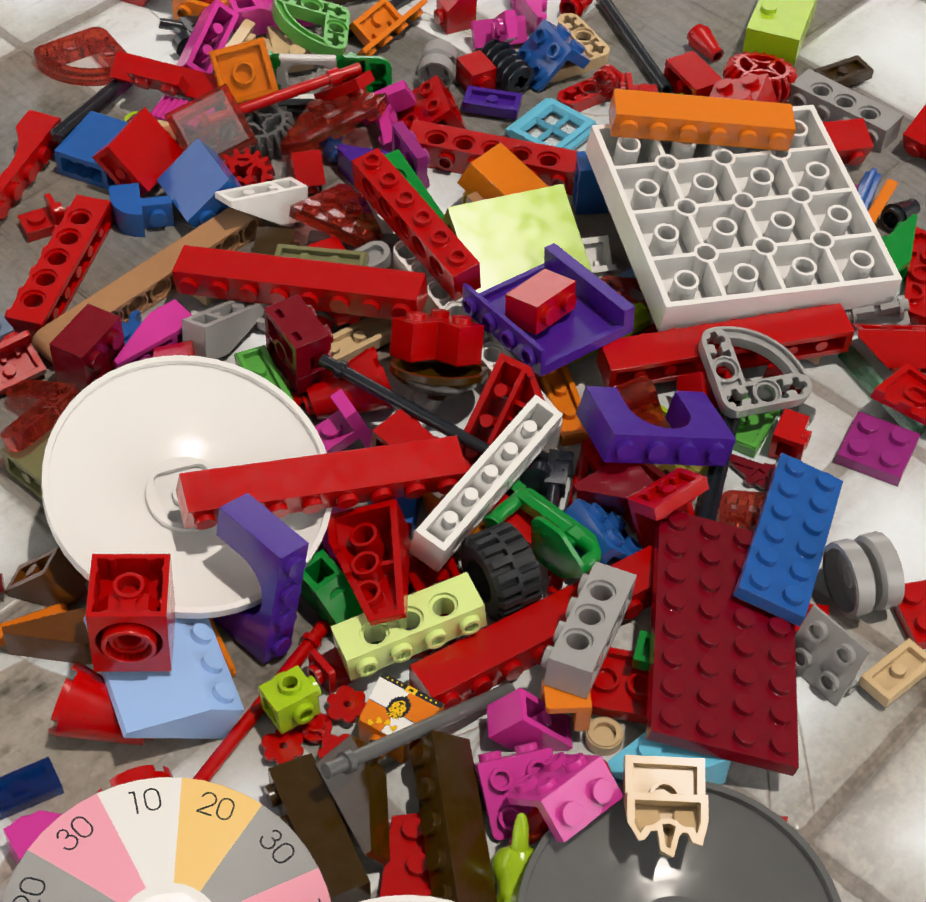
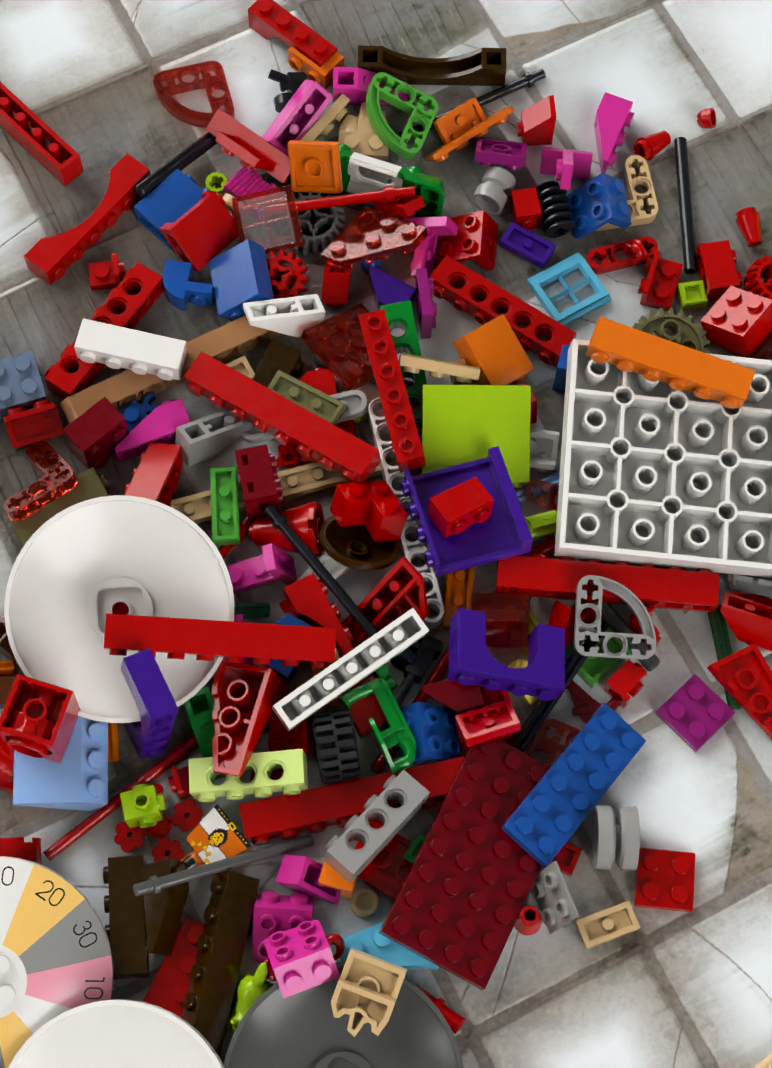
camera: 20 degrees right, 20 degrees up
(100, 263) = (130, 349): none -> white brick
(421, 35) = (502, 152): none -> magenta plate
(458, 194) = (439, 368): none -> tan plate
(809, 689) = (528, 927): none -> red cone

